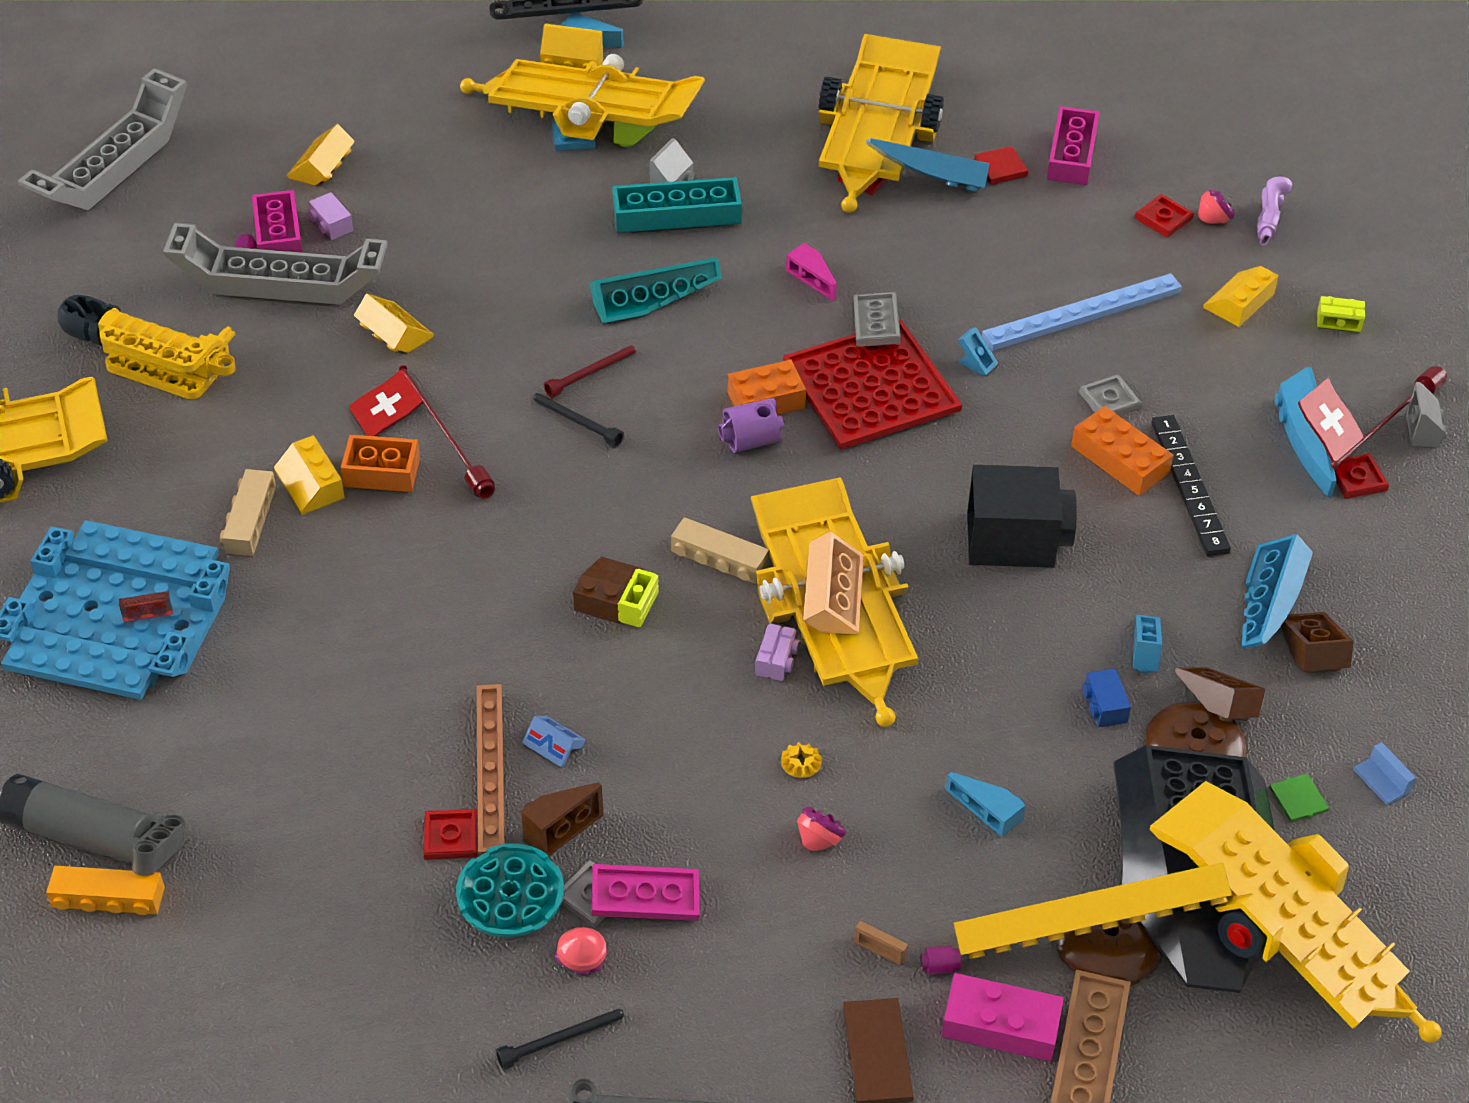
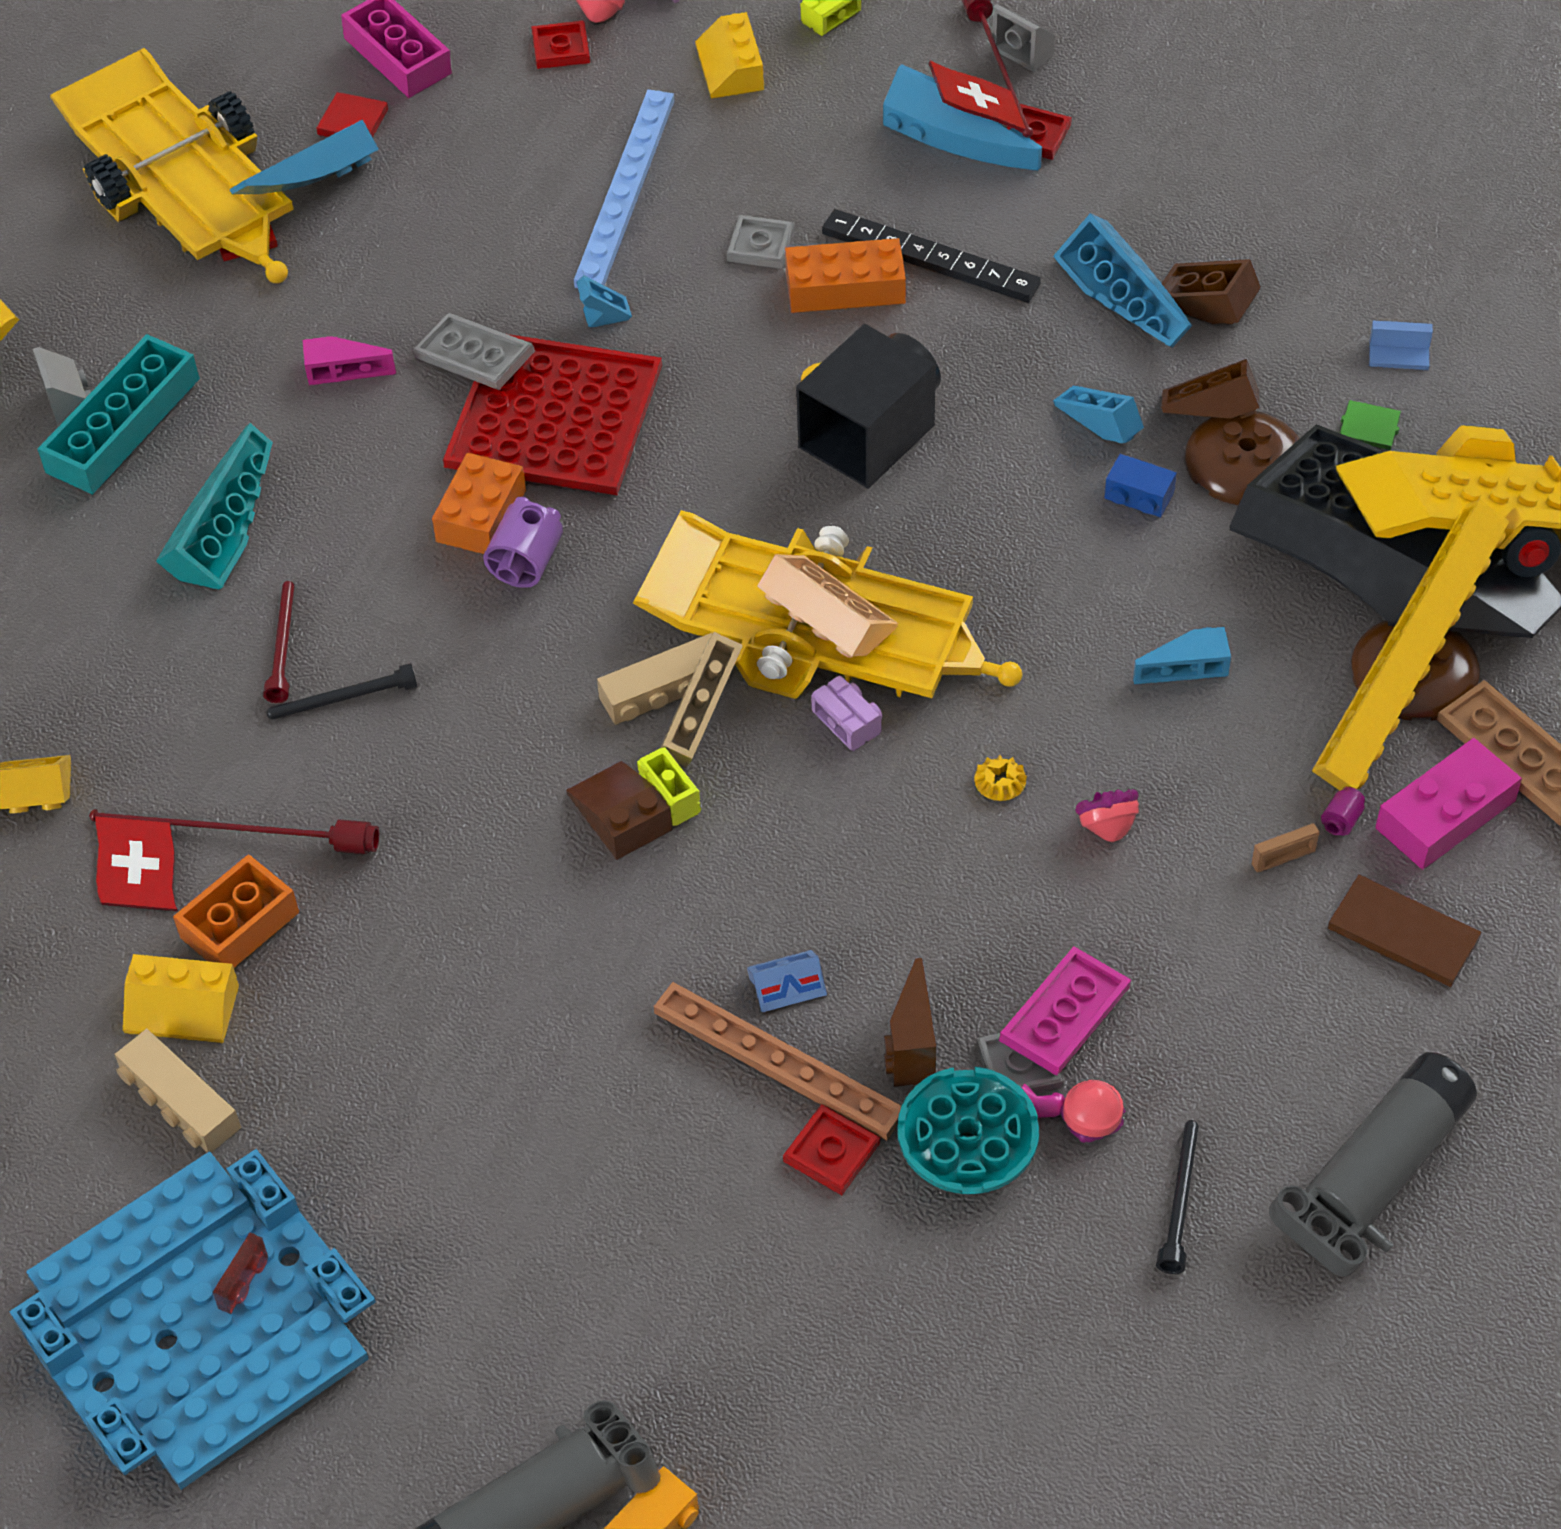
camera: 50 degrees left, 5 degrees up
(564, 917) = (1045, 1105): none -> dark pink arm
(709, 571) = (701, 698): none -> tan brick

